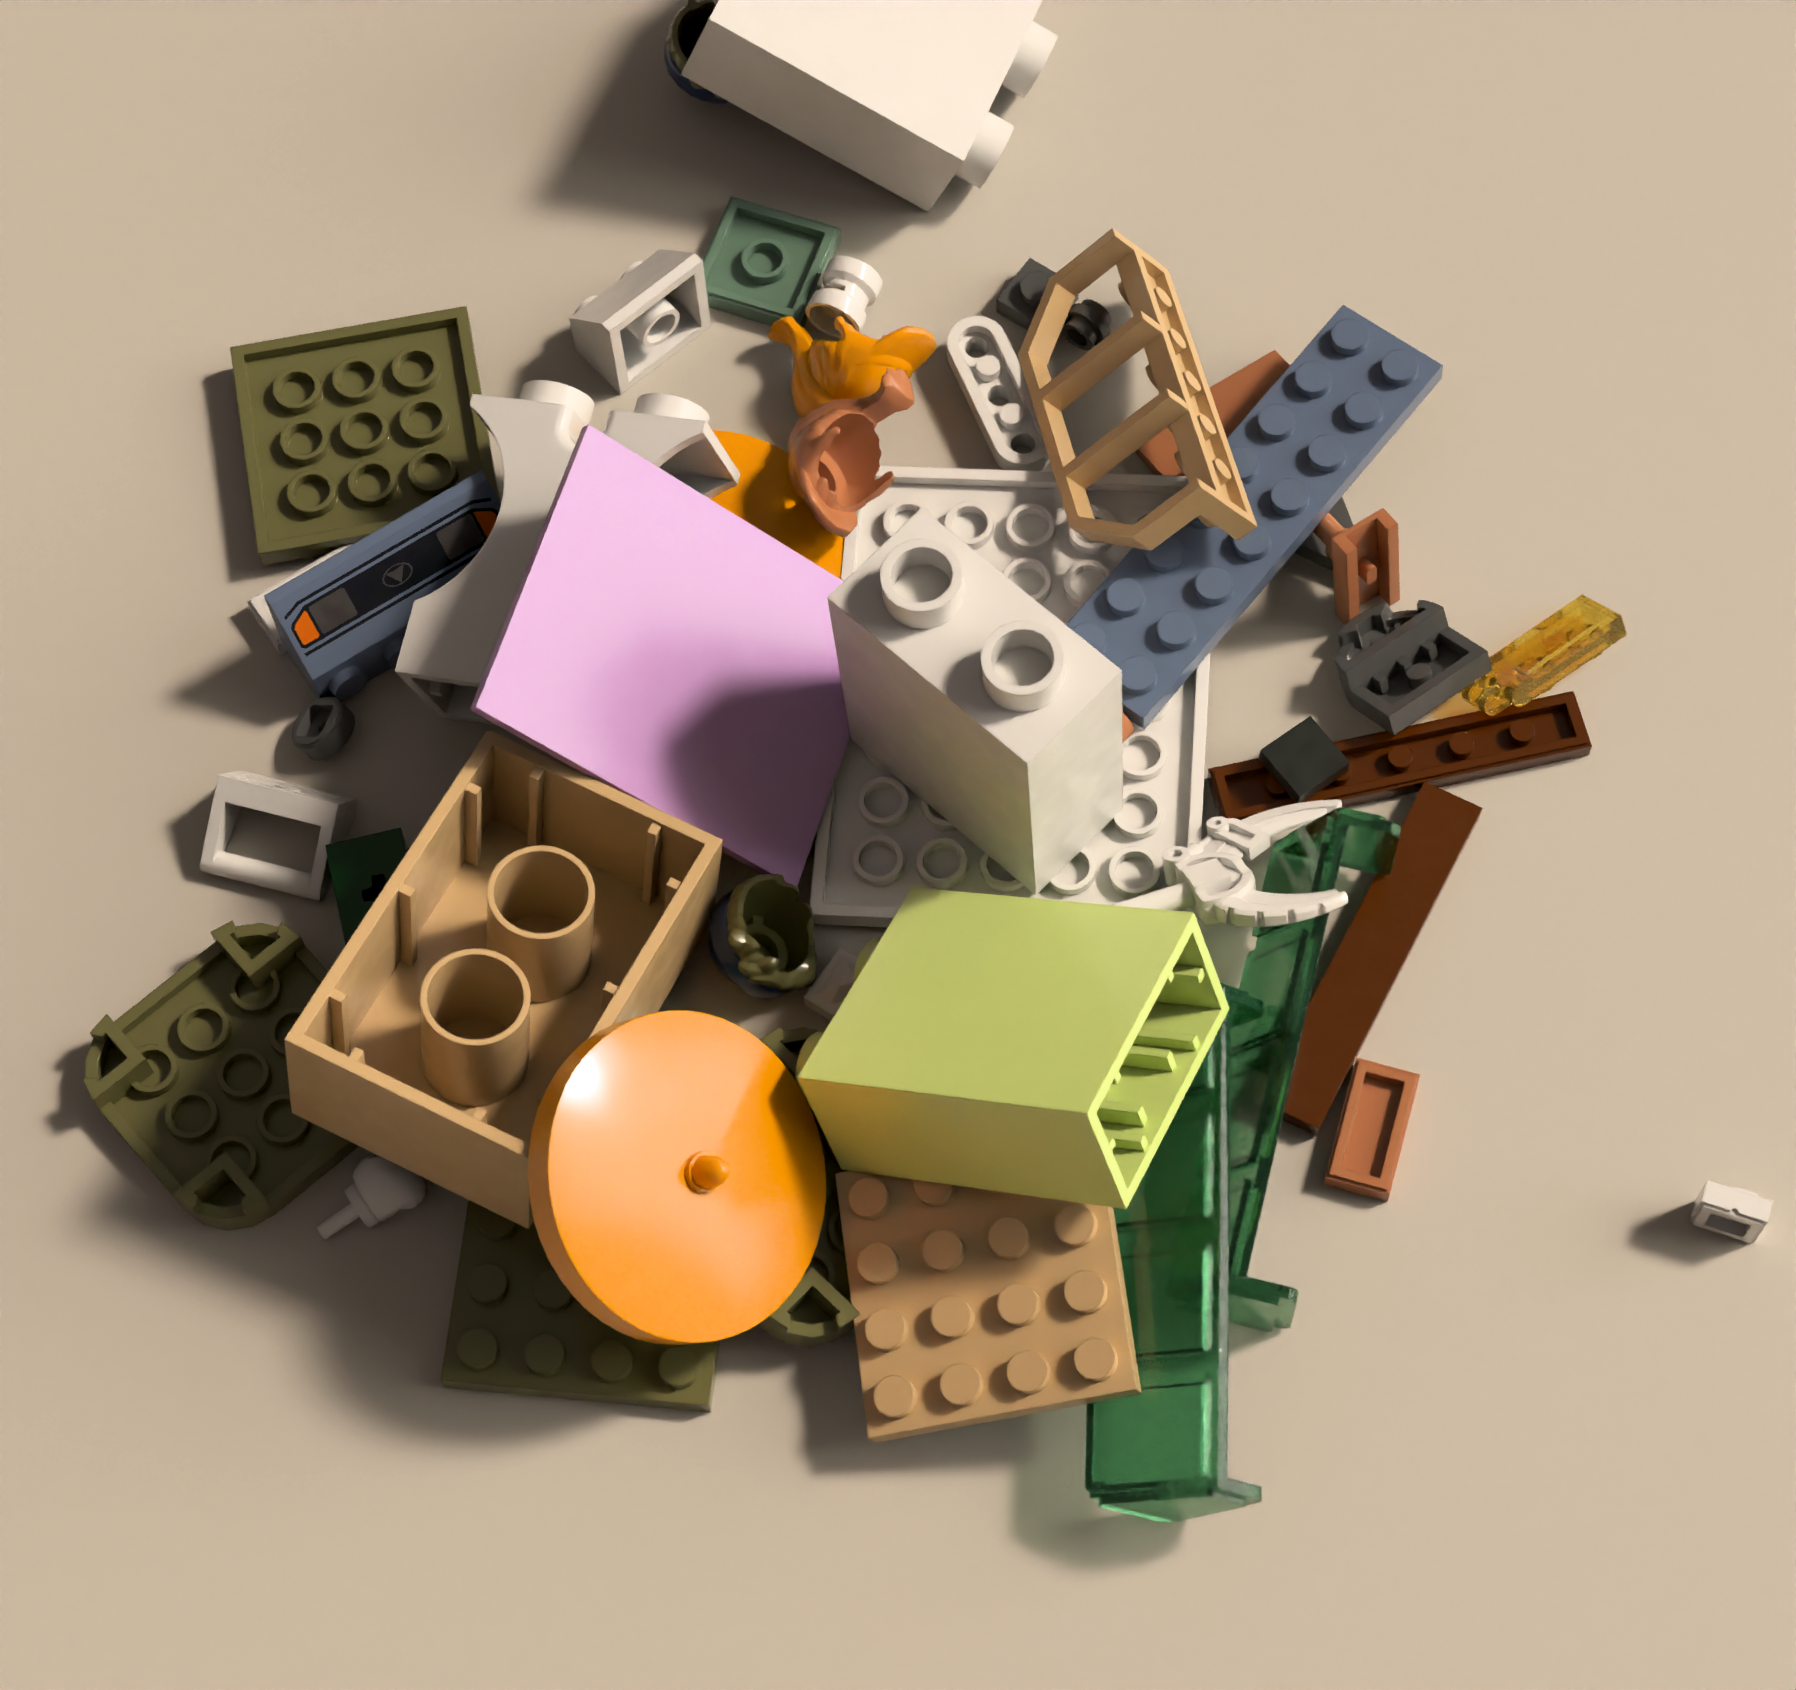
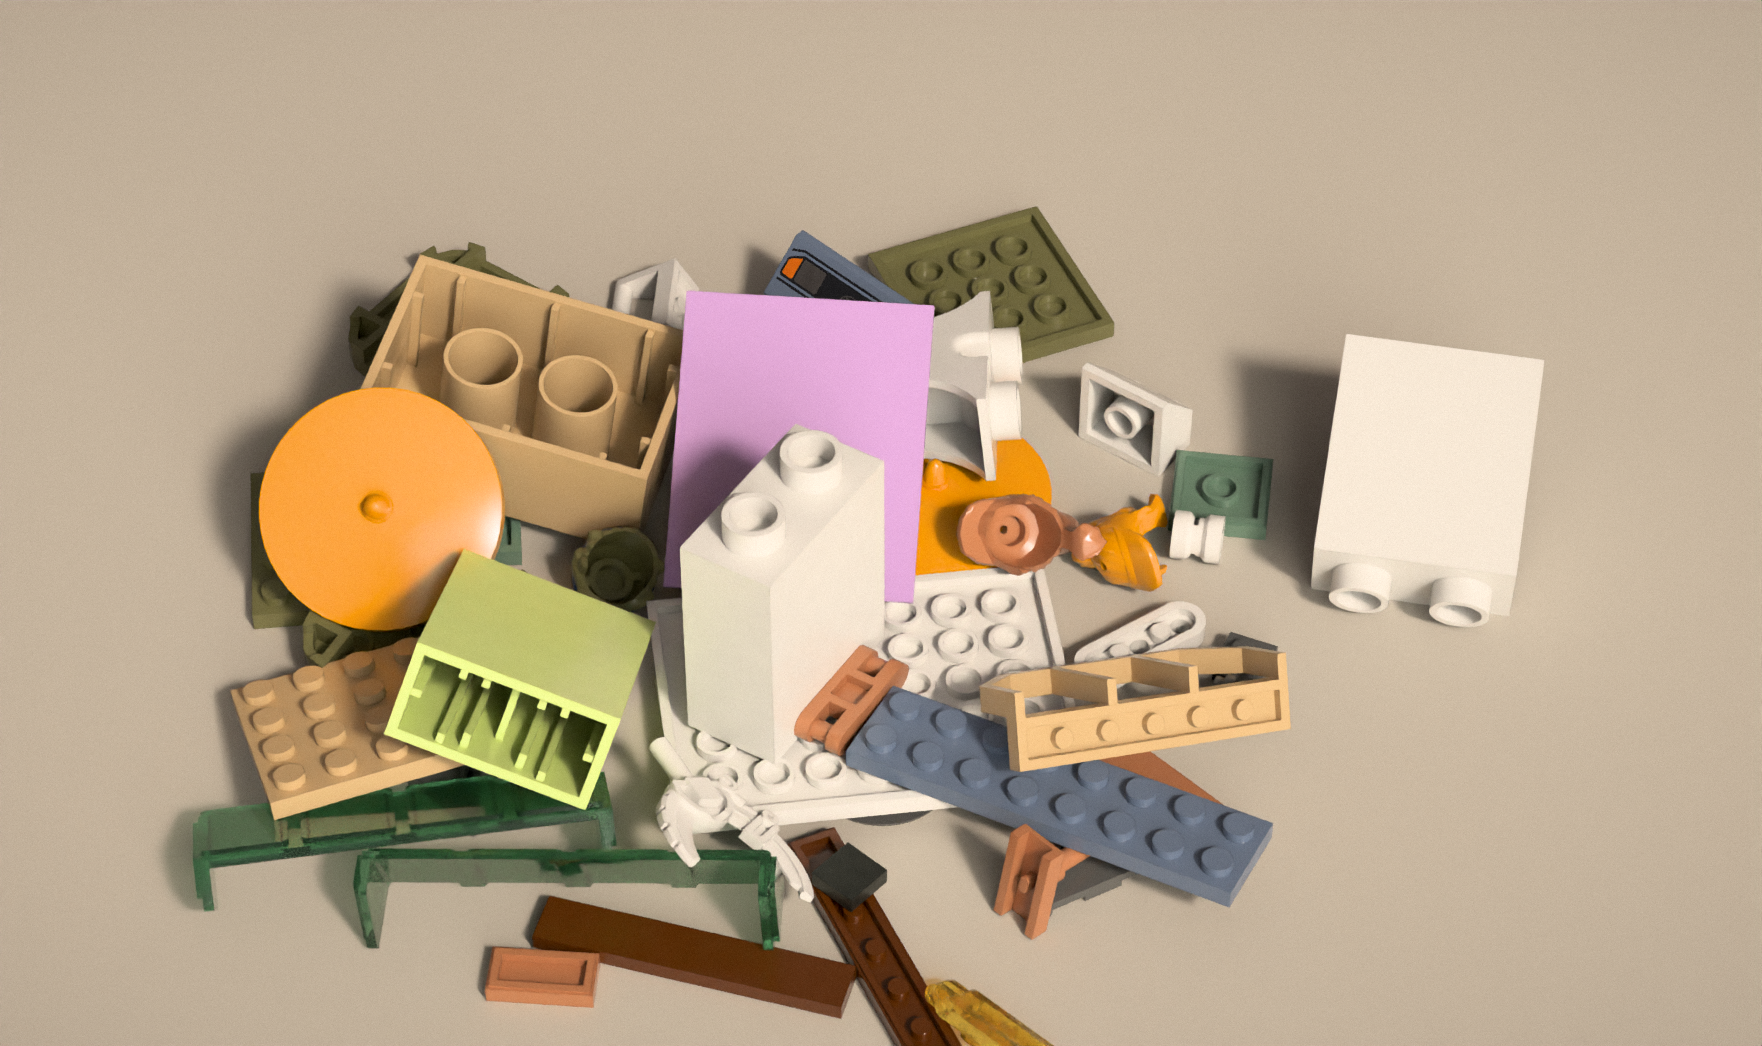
camera: 75 degrees right, 20 degrees down
(1405, 663) = (959, 935): dark grey slope -> none

